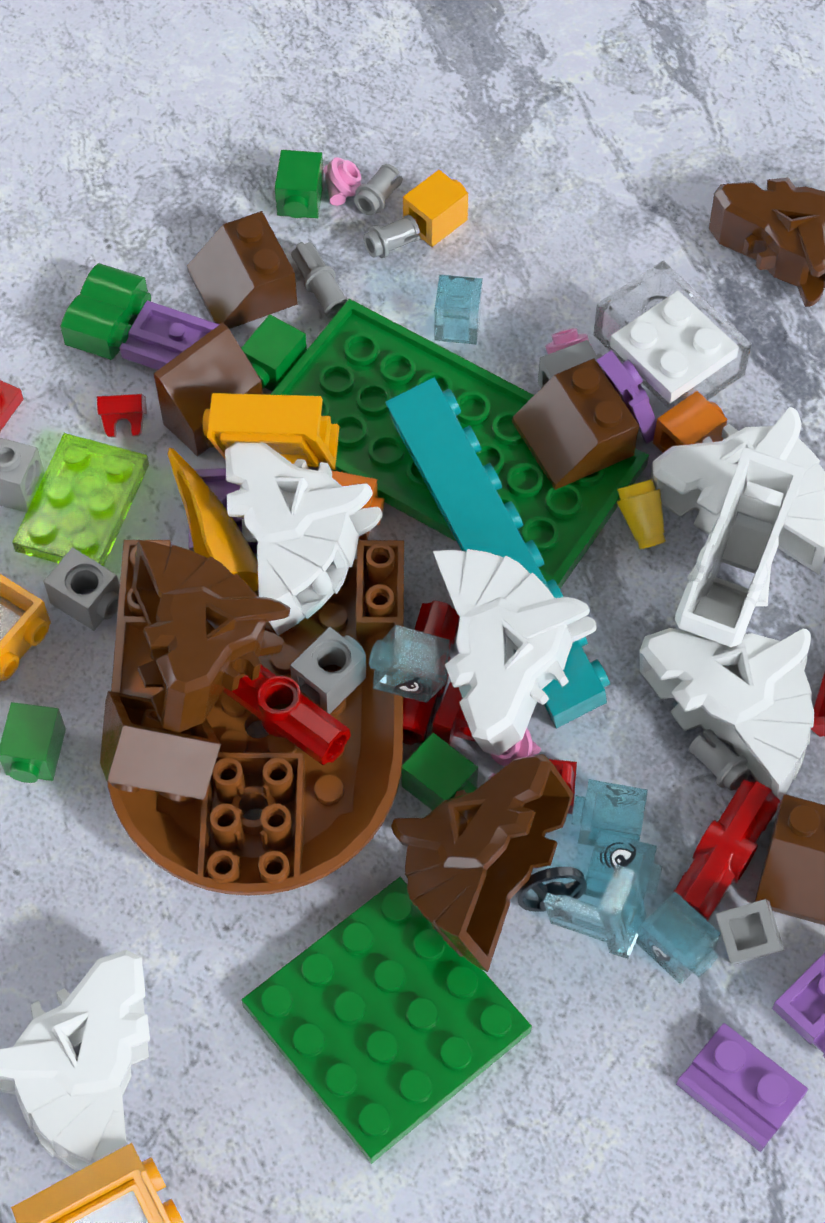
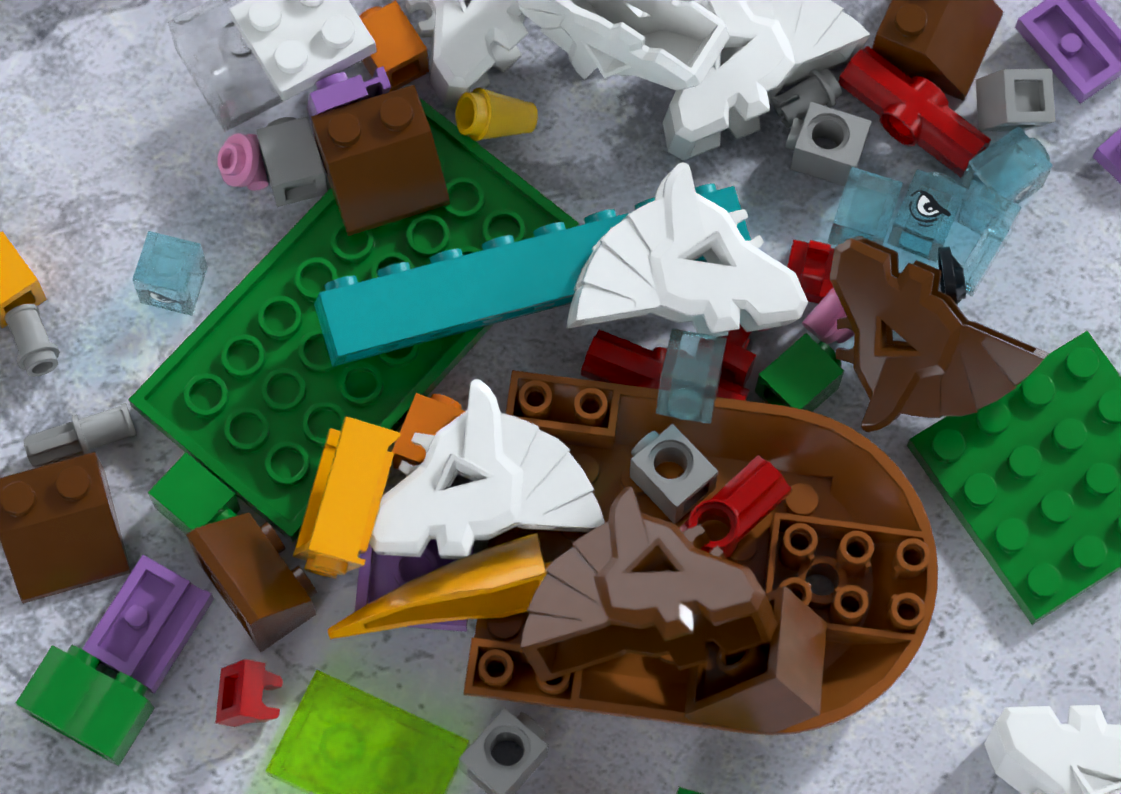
camera: 85 degrees left, 10 degrees up
(673, 798) = (844, 129): none -> light grey brick

